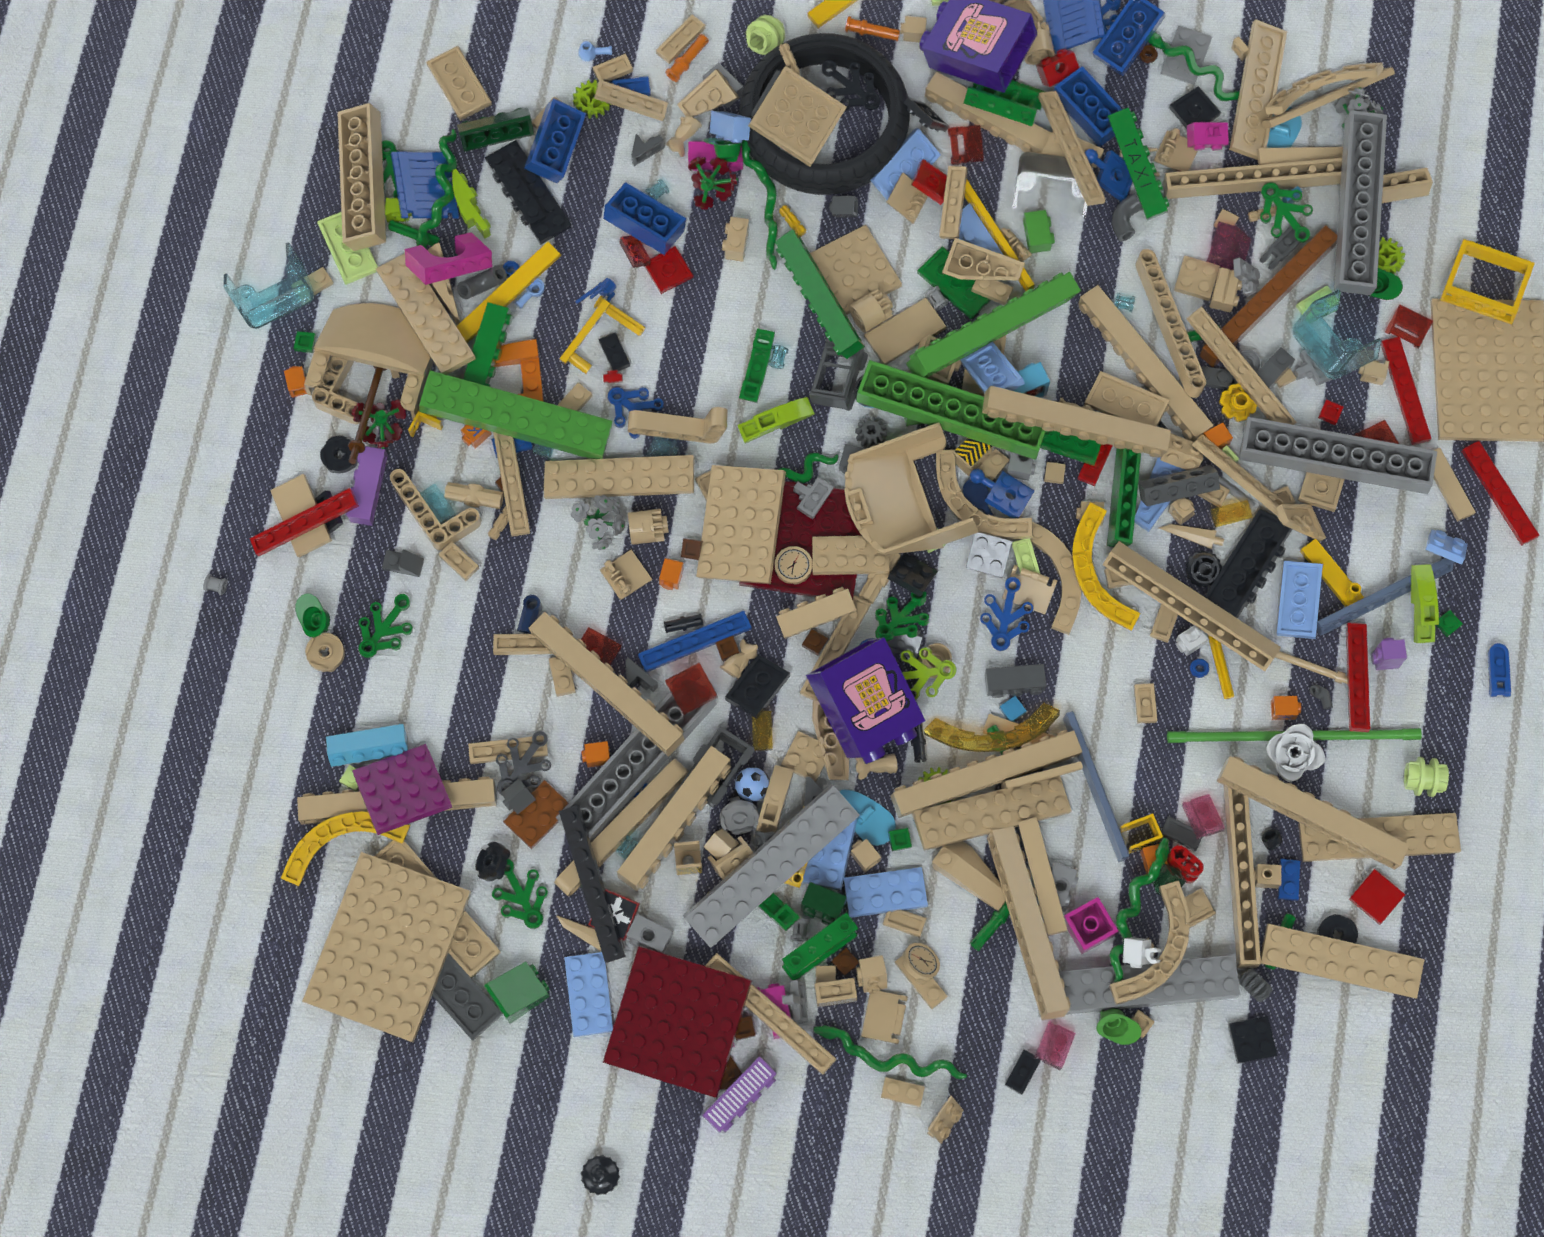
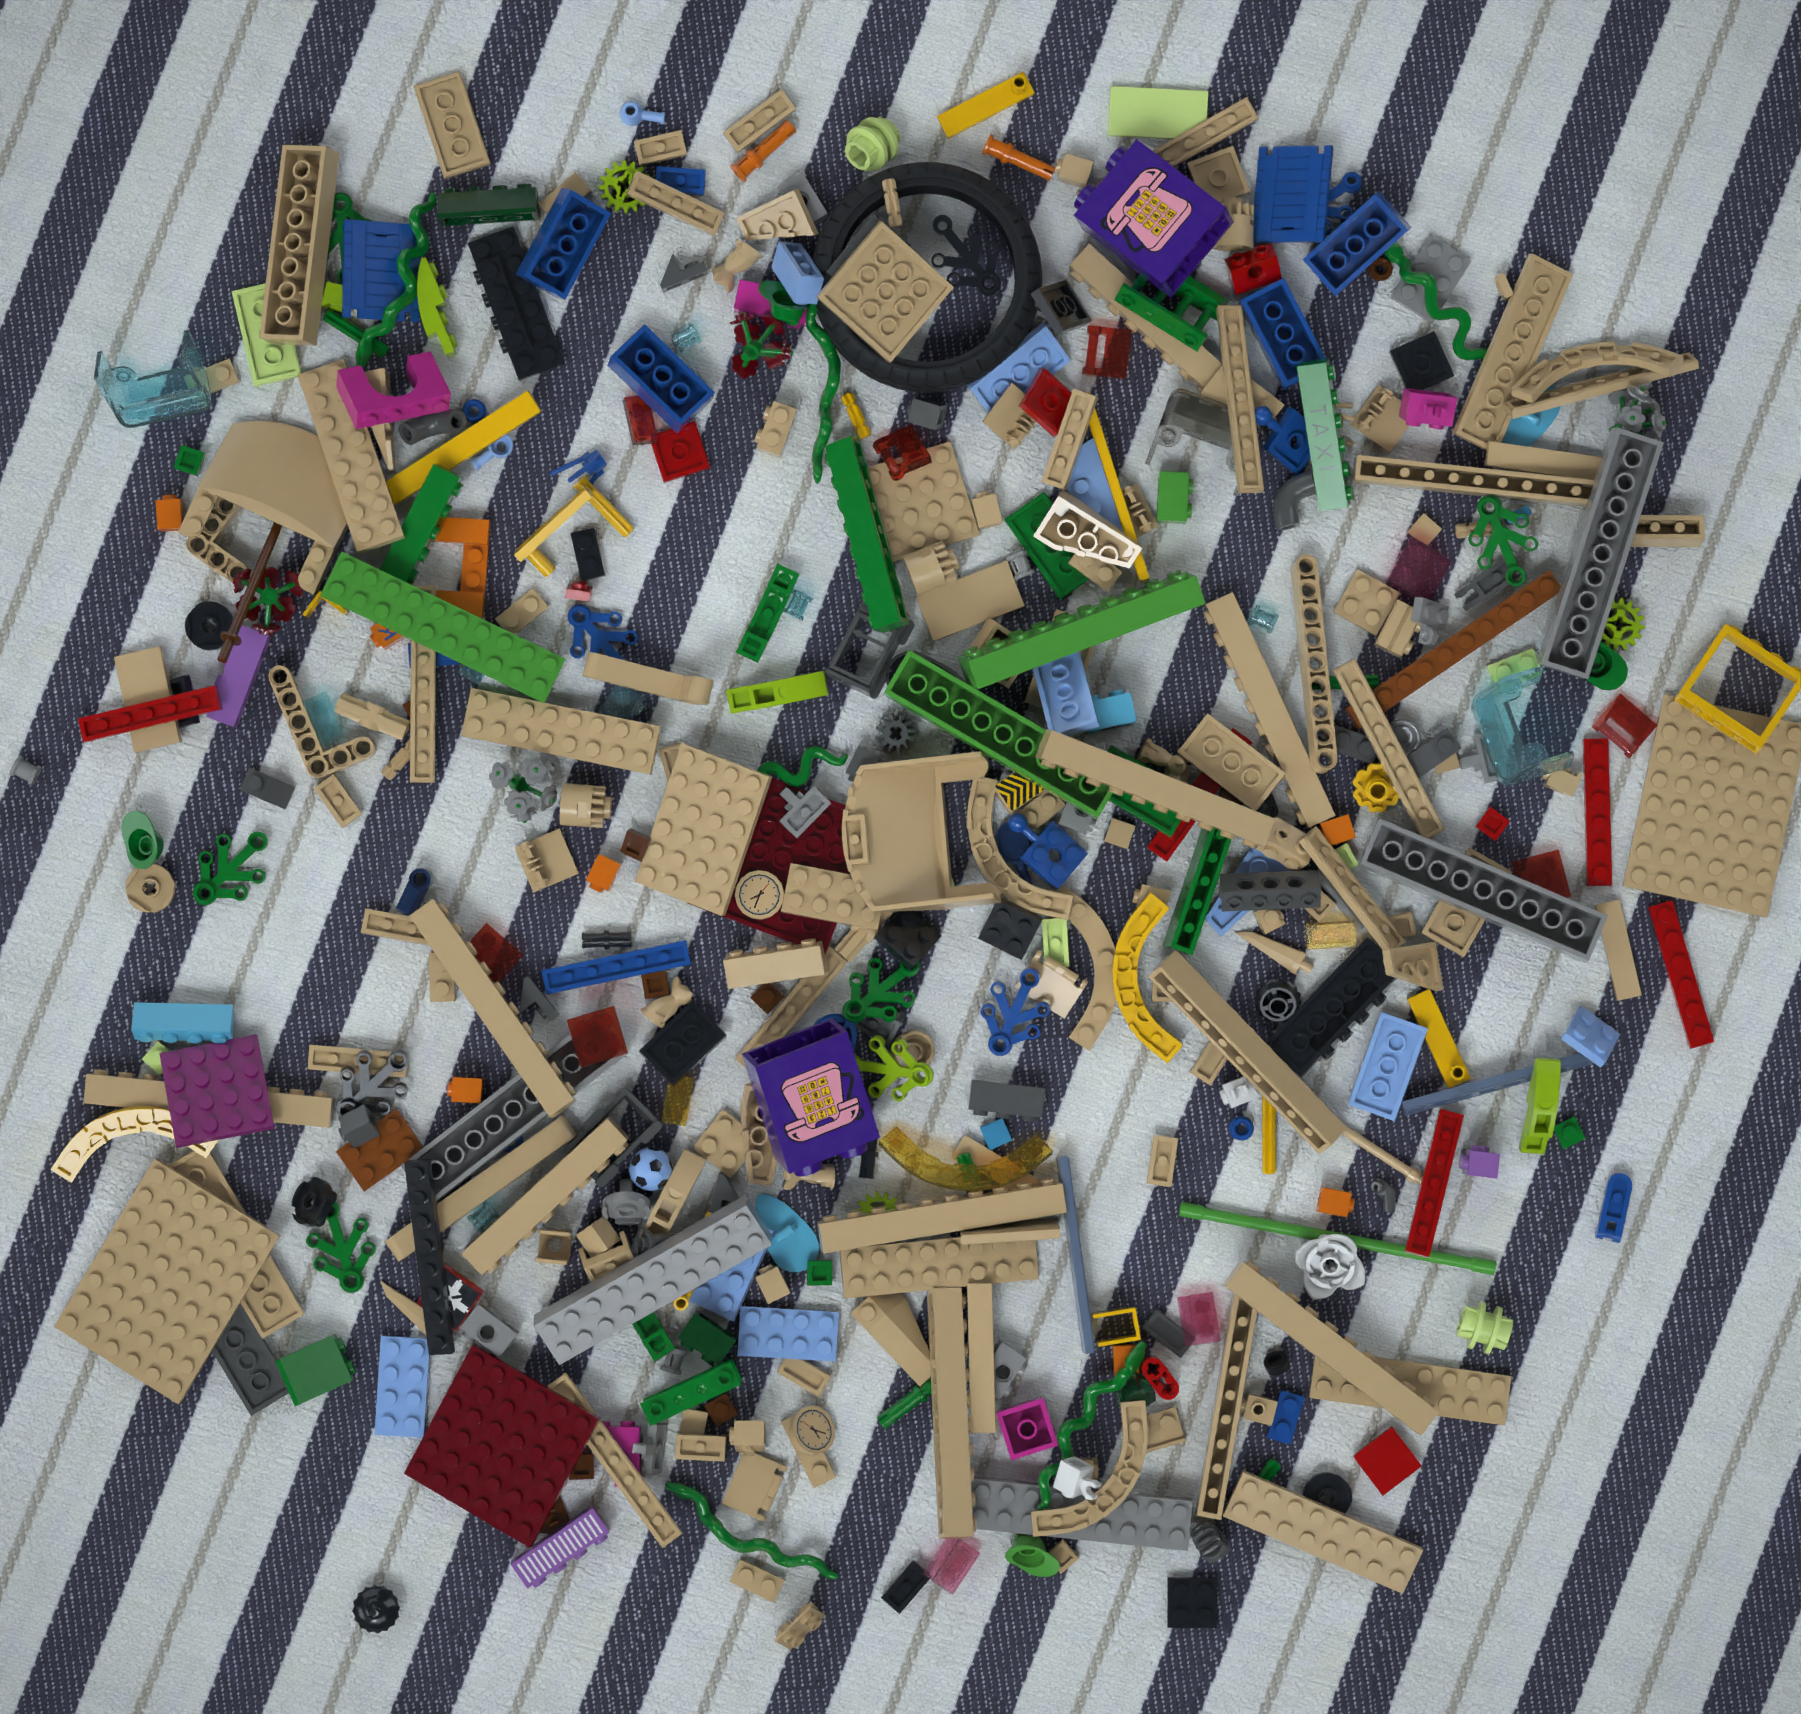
camera: 10 degrees right, 15 degrees up
(834, 230) = (909, 448): none -> clear red plate
(903, 266) = (986, 510): none -> tan brick

